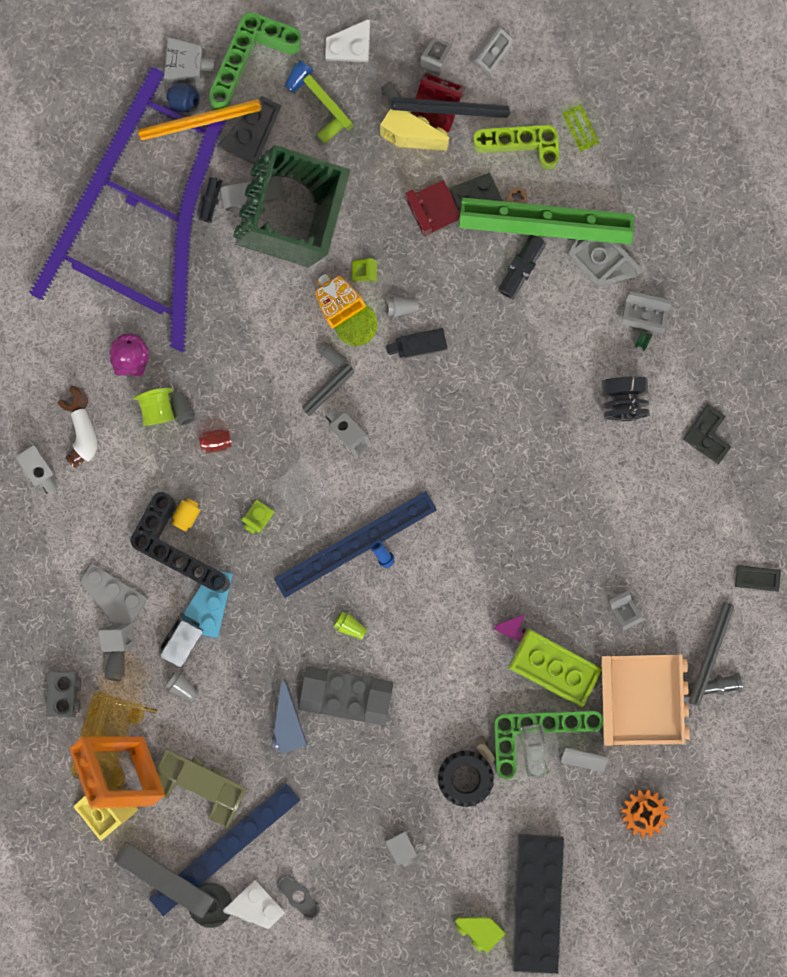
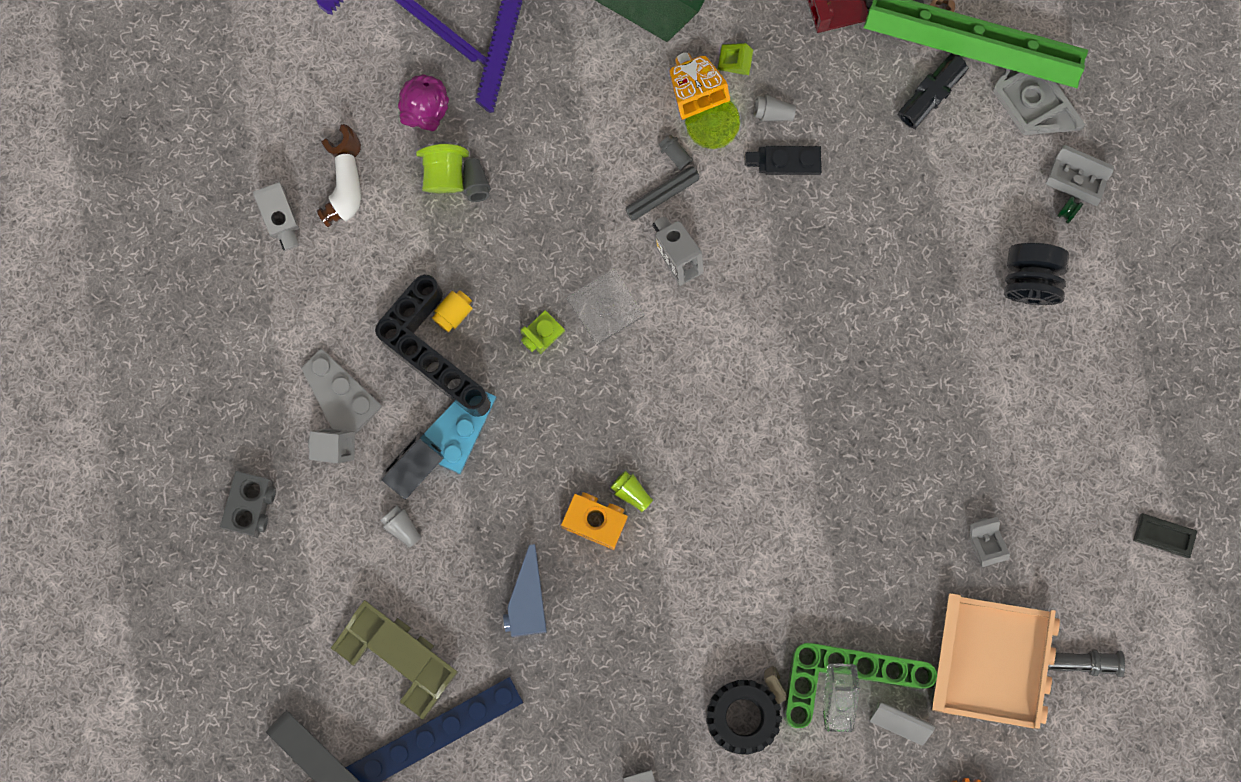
camera: 10 degrees right, 5 degrees down
(93, 781) = (259, 619): orange window -> none
(103, 820) = (269, 664): light yellow slope -> none
(110, 718) = (288, 572): clear yellow windscreen -> none
(115, 666) = (322, 483): dark grey cone -> none
(215, 441) = (508, 227): clear red brick -> none
(313, 657) = (605, 534): none -> light orange brick
(346, 696) = (609, 580): dark grey piece -> none
(355, 544) = (658, 390): dark blue plate -> none
(385, 558) = (693, 414): blue pin -> none
(511, 627) = (836, 537): magenta slope -> none
(555, 668) = (885, 597): lime tile -> none
(702, 435) = (1124, 345): pearl dark grey tile -> none
(711, 654) = (1090, 620): dark grey axle -> none

